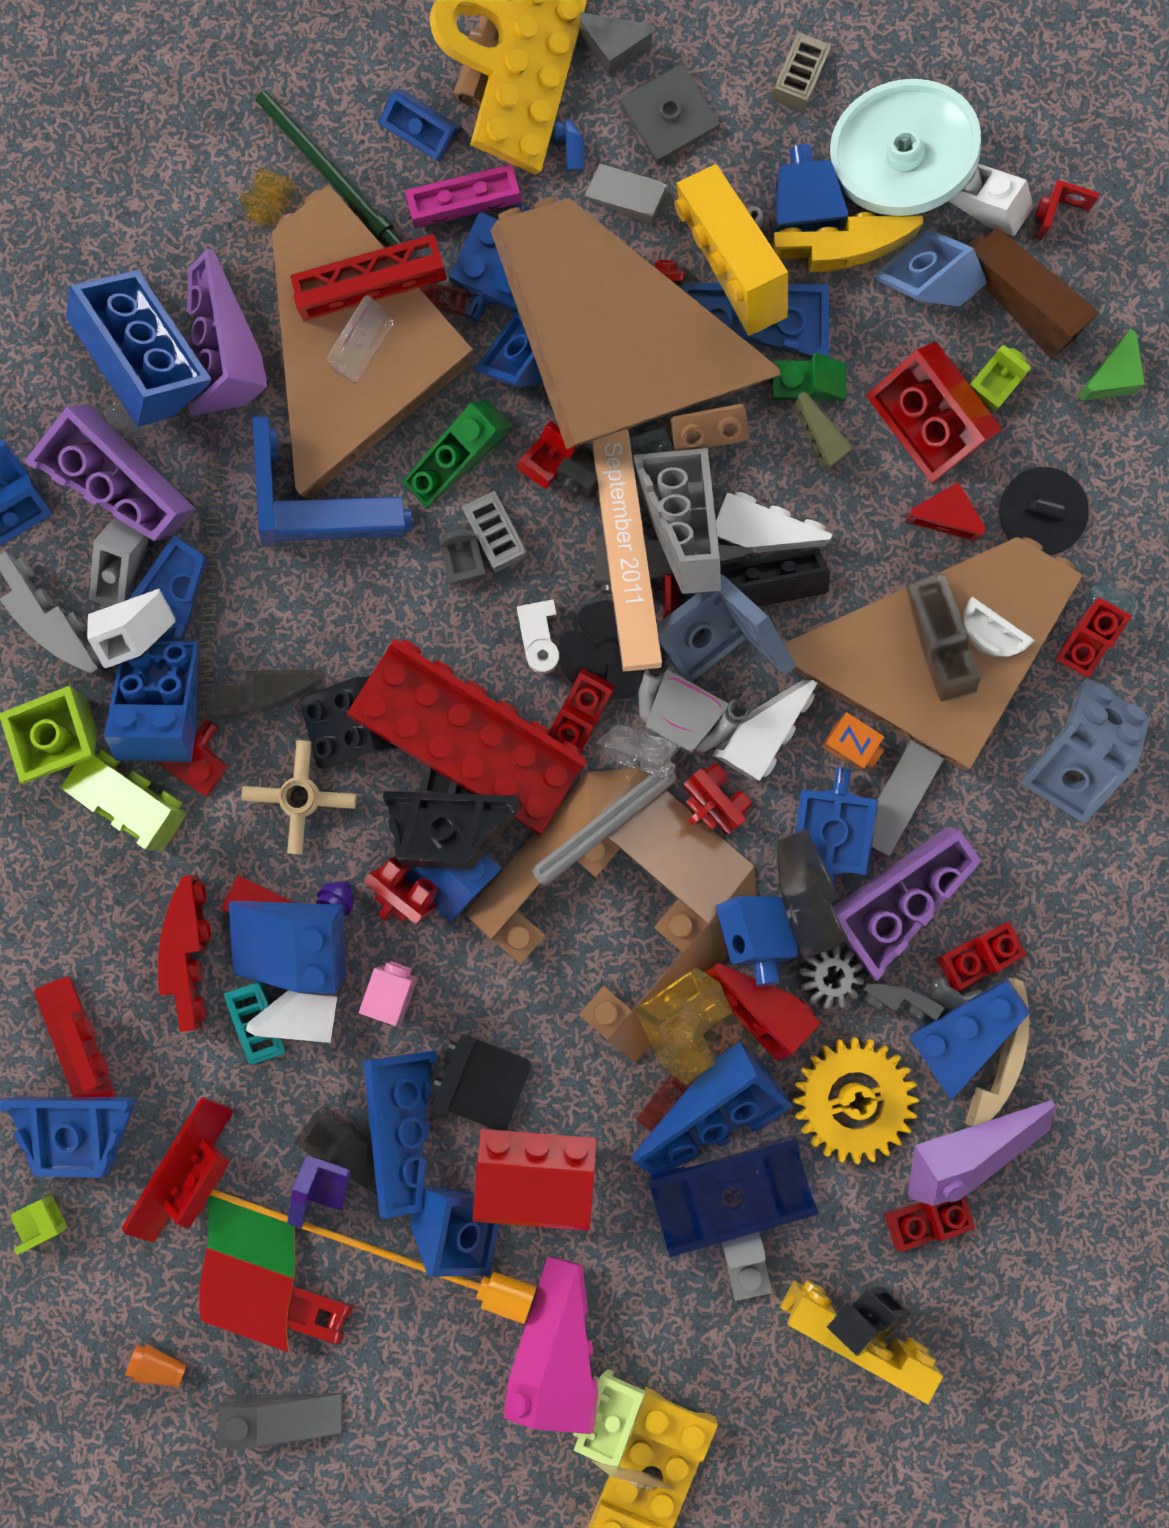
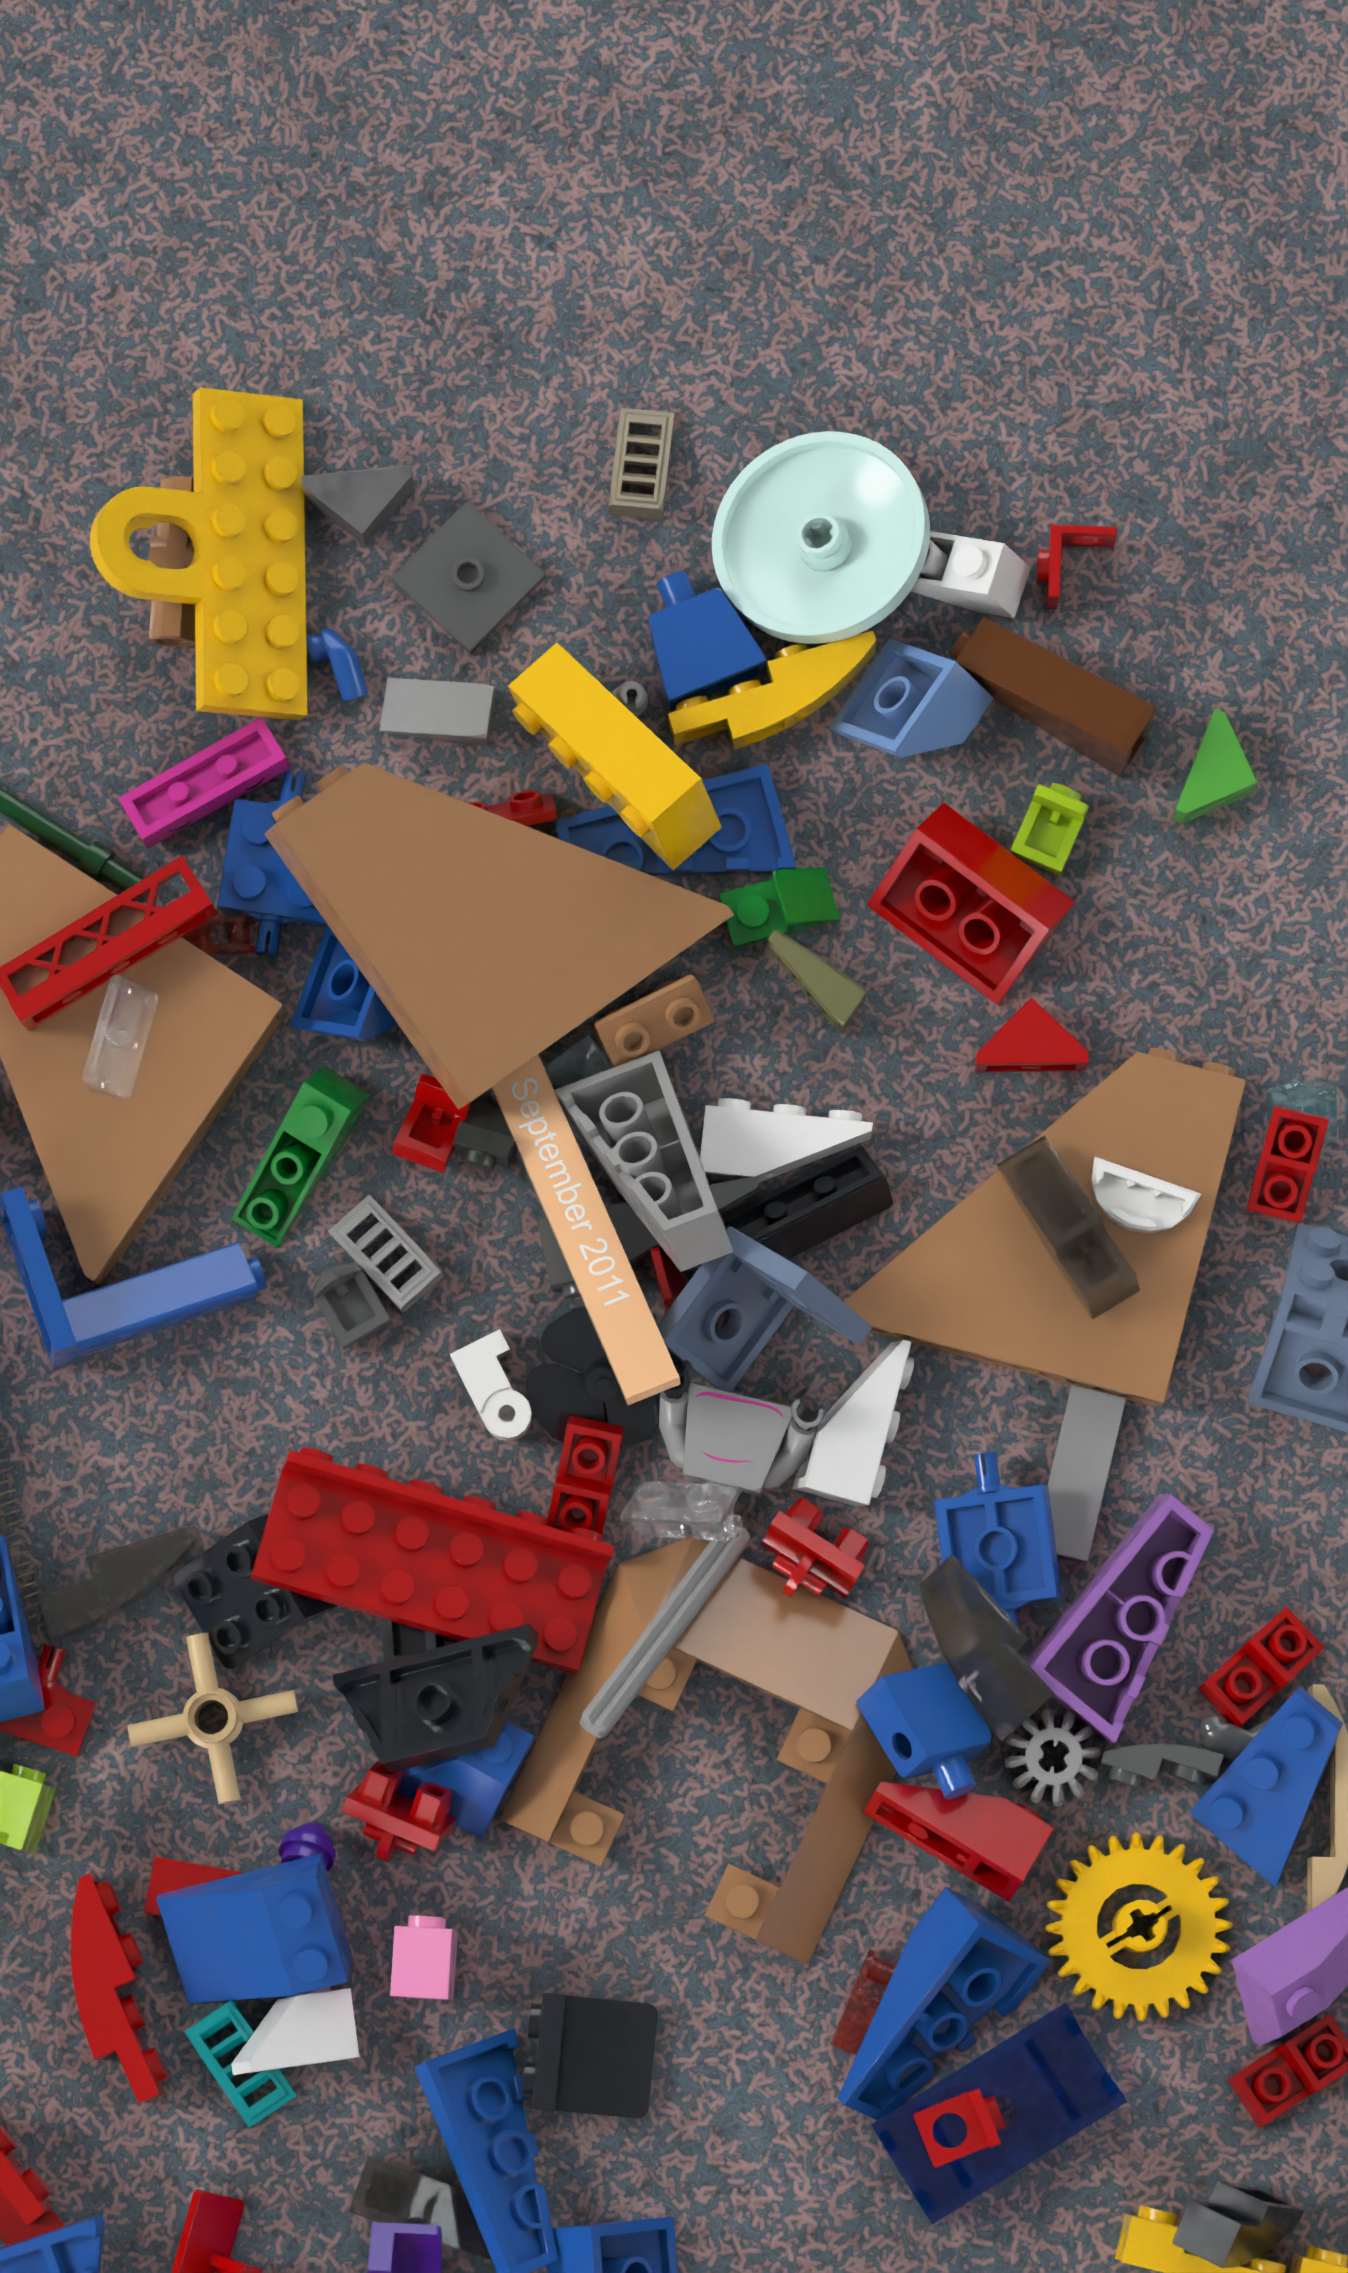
camera: 10 degrees left, 5 degrees down
(419, 124) = (110, 694): blue slope -> none
(534, 1180) = (707, 2167): red slope -> none
(678, 1020) = (847, 1881): clear yellow brick -> none
(721, 1201) = (982, 2123): none -> red bracket
(747, 1266) = (1048, 2208): light grey slope -> none
(854, 742) = (990, 1412): orange brick -> none
(1045, 508) = (1170, 997): black shield -> none

